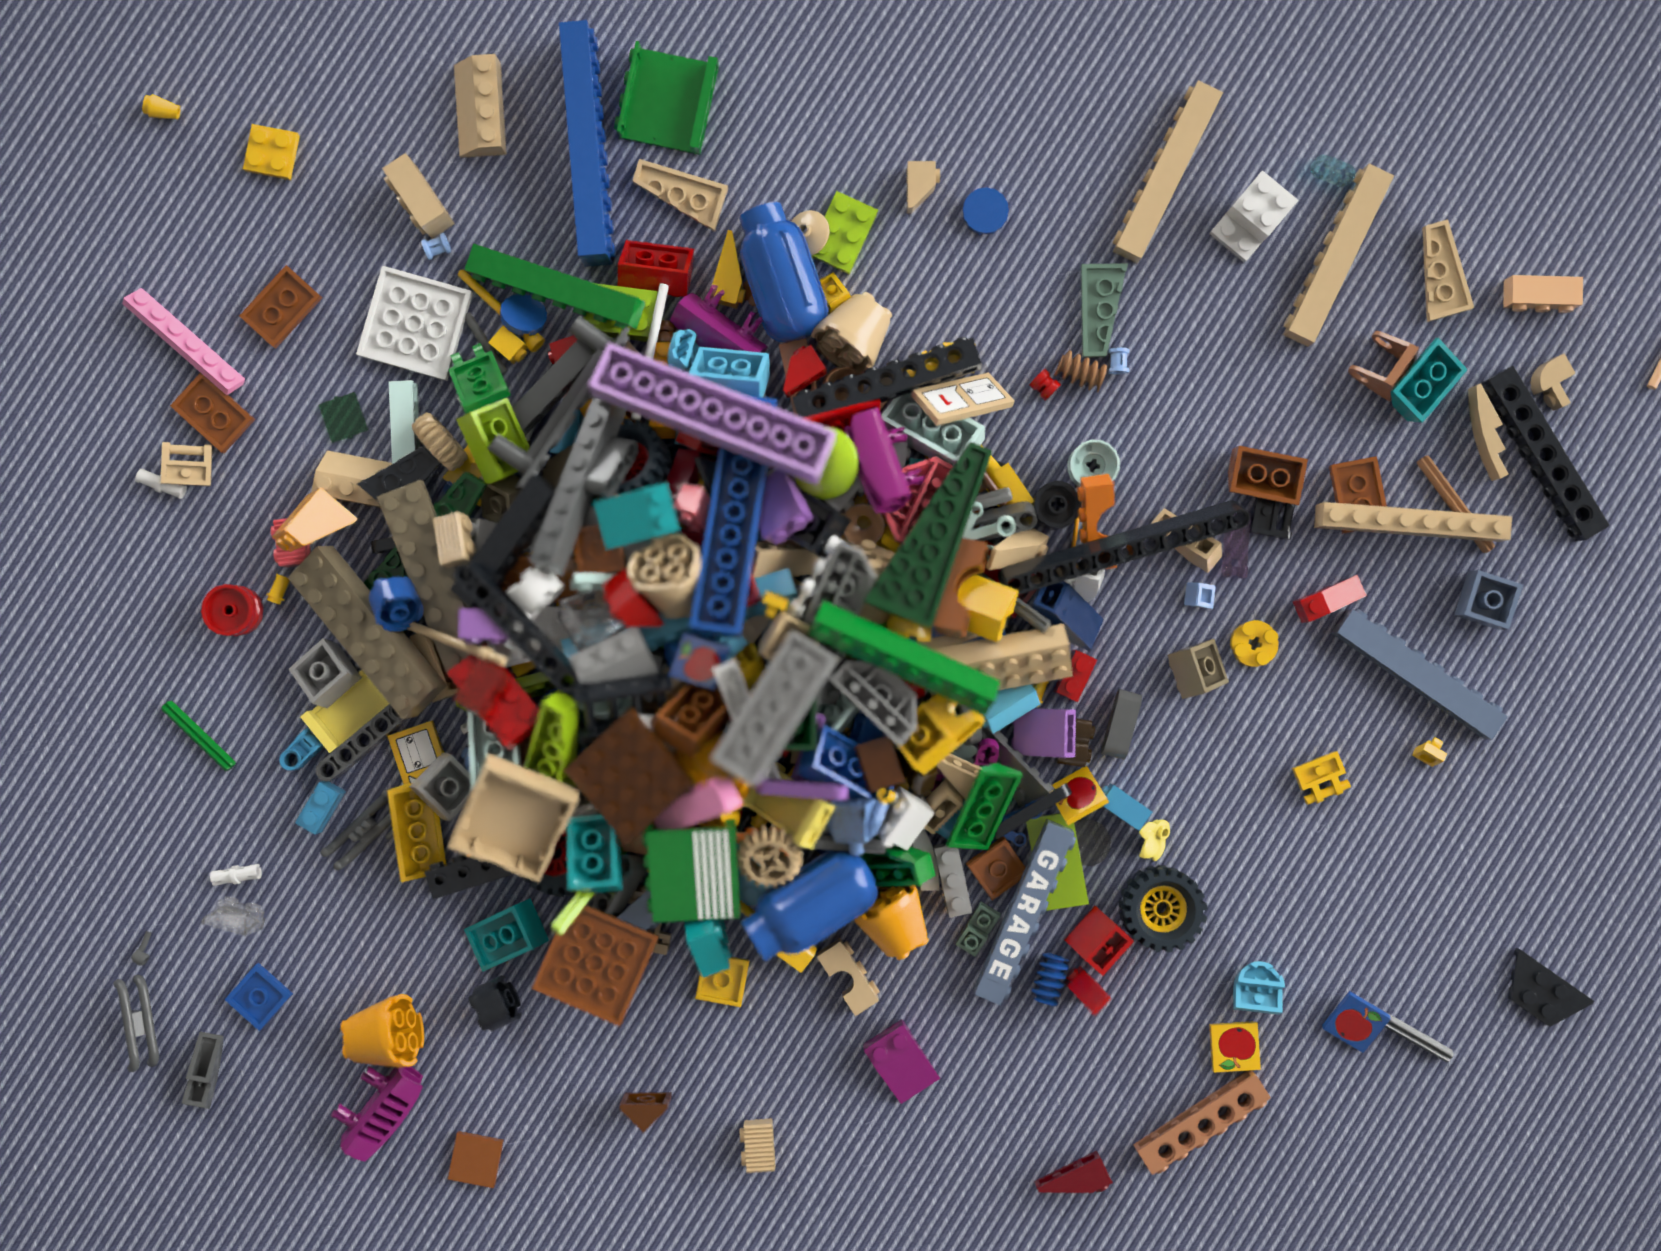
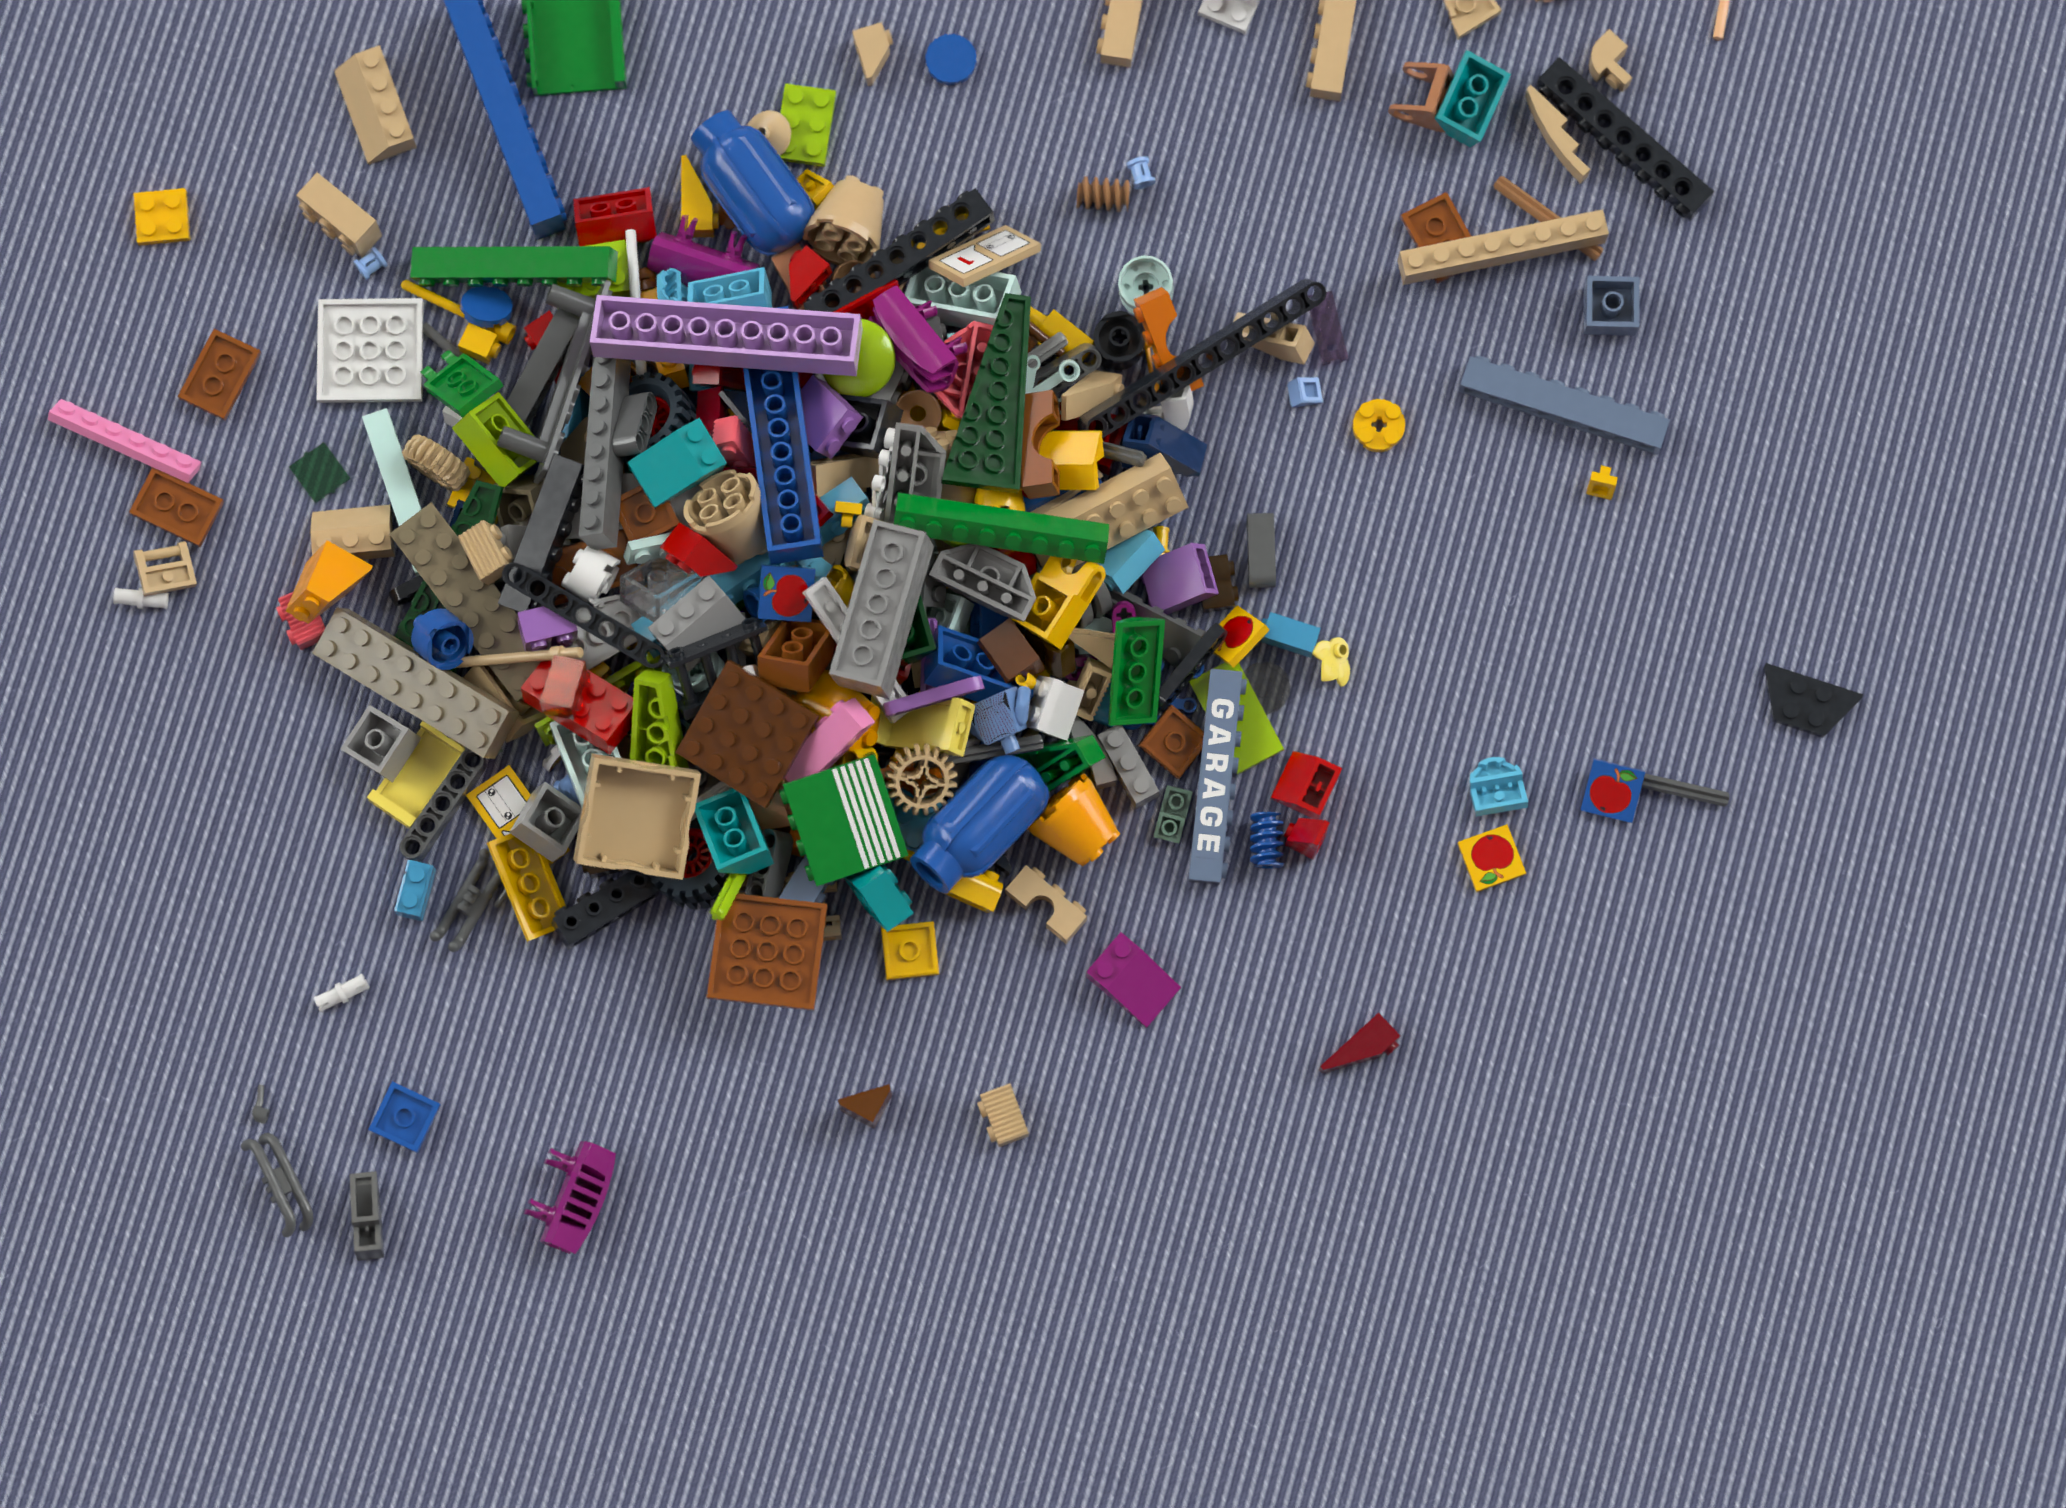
camera: 15 degrees left, 10 degrees down
(160, 108) = (30, 204): yellow cone -> none
(198, 735) = (257, 856): green axle -> none
(232, 610) = (259, 692): red wheel -> none
(236, 917) = (357, 1034): clear slope -> none
(278, 589) = (301, 673): yellow pin -> none
(304, 747) = (379, 832): dark azure piece -> none
(384, 1033) = (555, 1108): light orange cone -> none
(407, 470) = (409, 501): black wing -> none
(475, 1159) = (695, 1225): dark orange tile -> none
(495, 1003) = (669, 1042): black brick -> none
(506, 935) = (658, 969): teal slope -> none
(688, 193) = (621, 131): tan wing -> none
(1044, 384) = (1069, 219): red wheel -> none
(1073, 686) = (1194, 518): red brick -> none
(1099, 304) = (1102, 119): sand green wing -> none
(1177, 930) = (1367, 700): black wheel -> none
(1197, 669) = (1325, 467): dark tan slope -> none
(1204, 1109) = (1520, 892): nougat brick -> none
(1265, 519) = (1348, 283): black plate -> none
(1266, 475) = (1333, 242): dark orange slope -> none
(1318, 771) = (1489, 538): yellow plate -> none
(1329, 599) = (1443, 355): slope -> none

